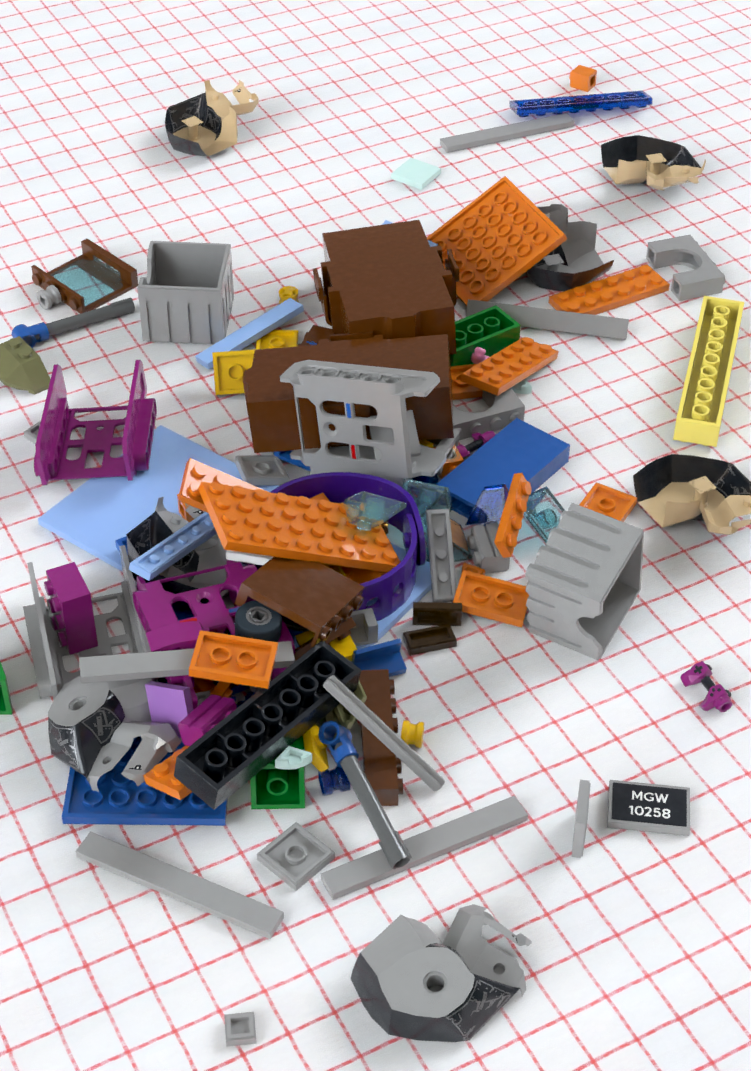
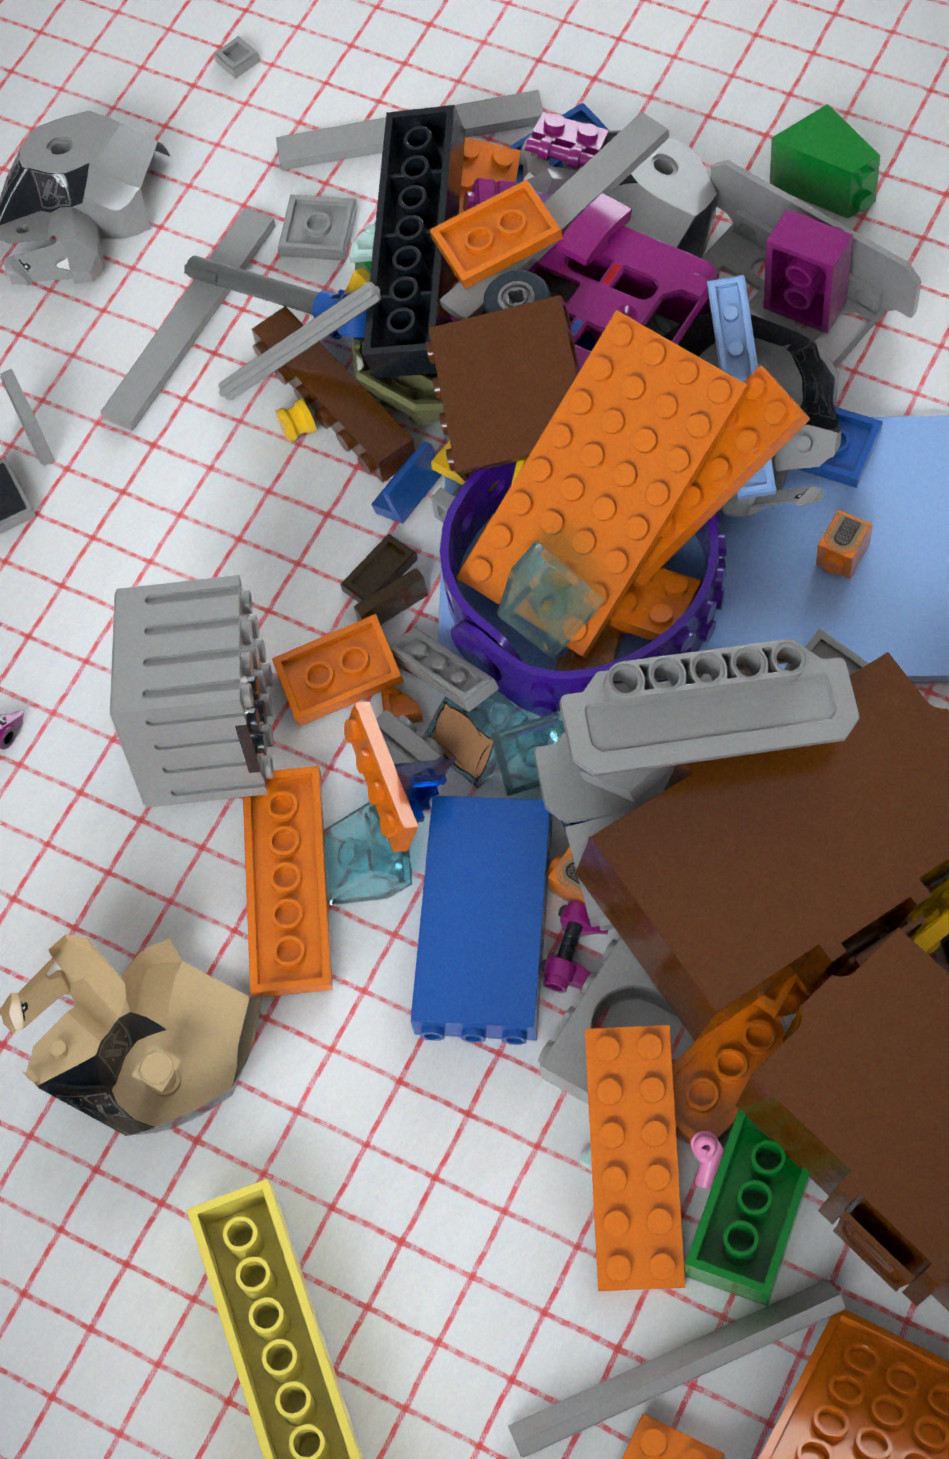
camera: 155 degrees right, 20 degrees up
(110, 755) = (566, 140): none -> magenta plate

